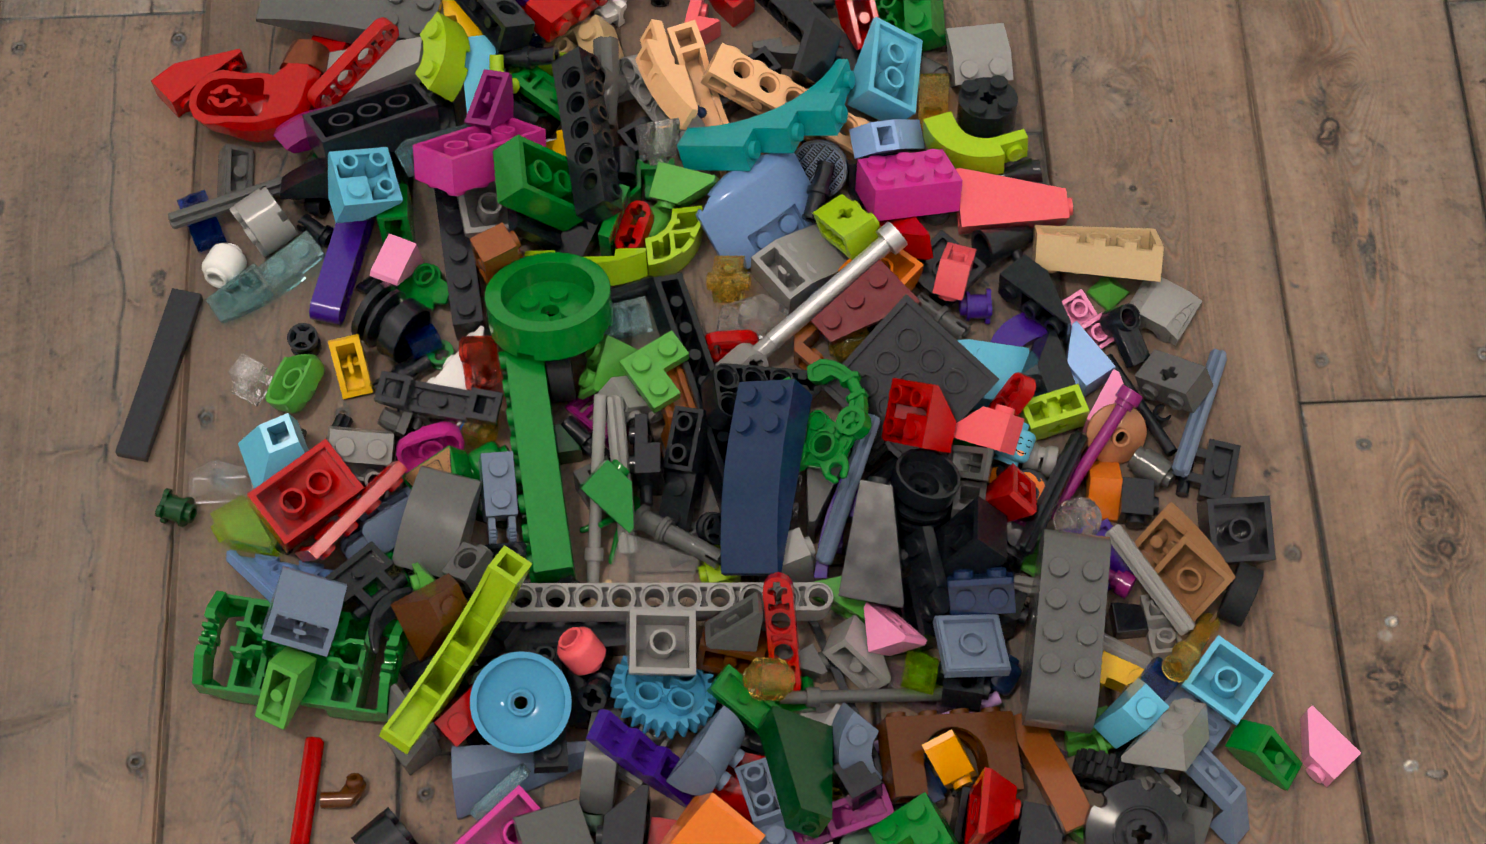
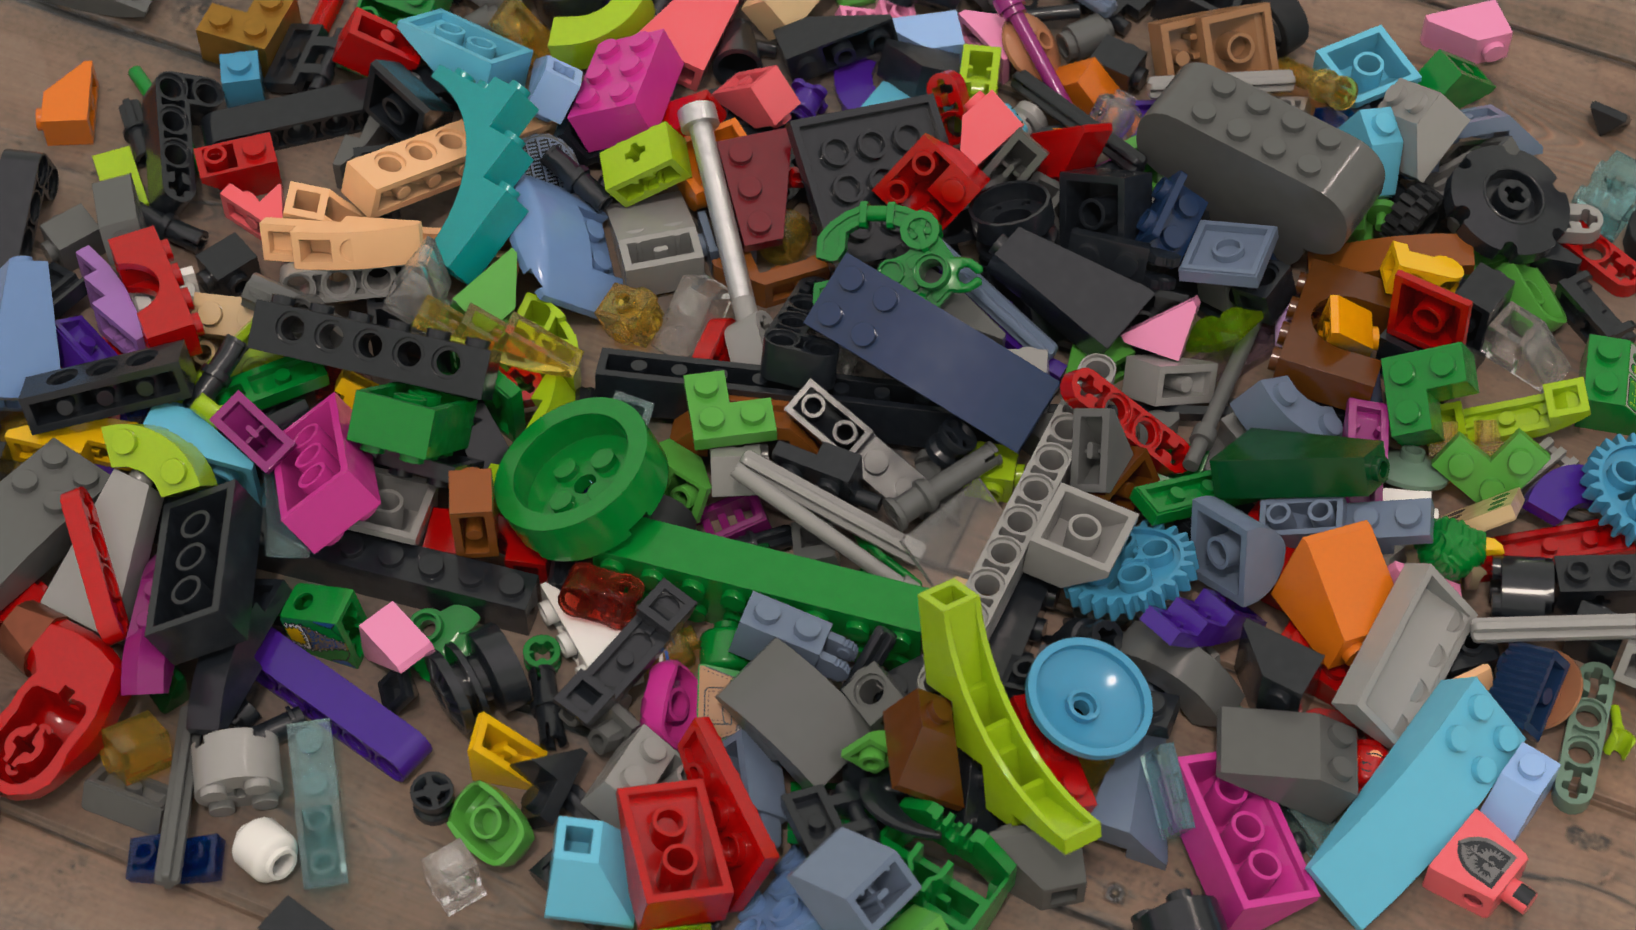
camera: 65 degrees left, 10 degrees down
(259, 158) = (136, 748): none -> clear yellow brick
(349, 401) = (551, 781): none -> black slope
(361, 183) = (286, 612): medium azure slope -> none
(423, 340) = (527, 649): clear blue slope -> none
(581, 651) = (1040, 624): coral head -> none
(612, 492) = (868, 507): green slope -> none
(636, 21) = (226, 266): none -> black brick
(641, 210) = (519, 339): none -> clear yellow slope
(769, 679) = (1174, 453): clear yellow head -> none
(857, 784) = (1345, 417): black panel -> none
(1036, 804) = (1437, 270): none -> yellow leg

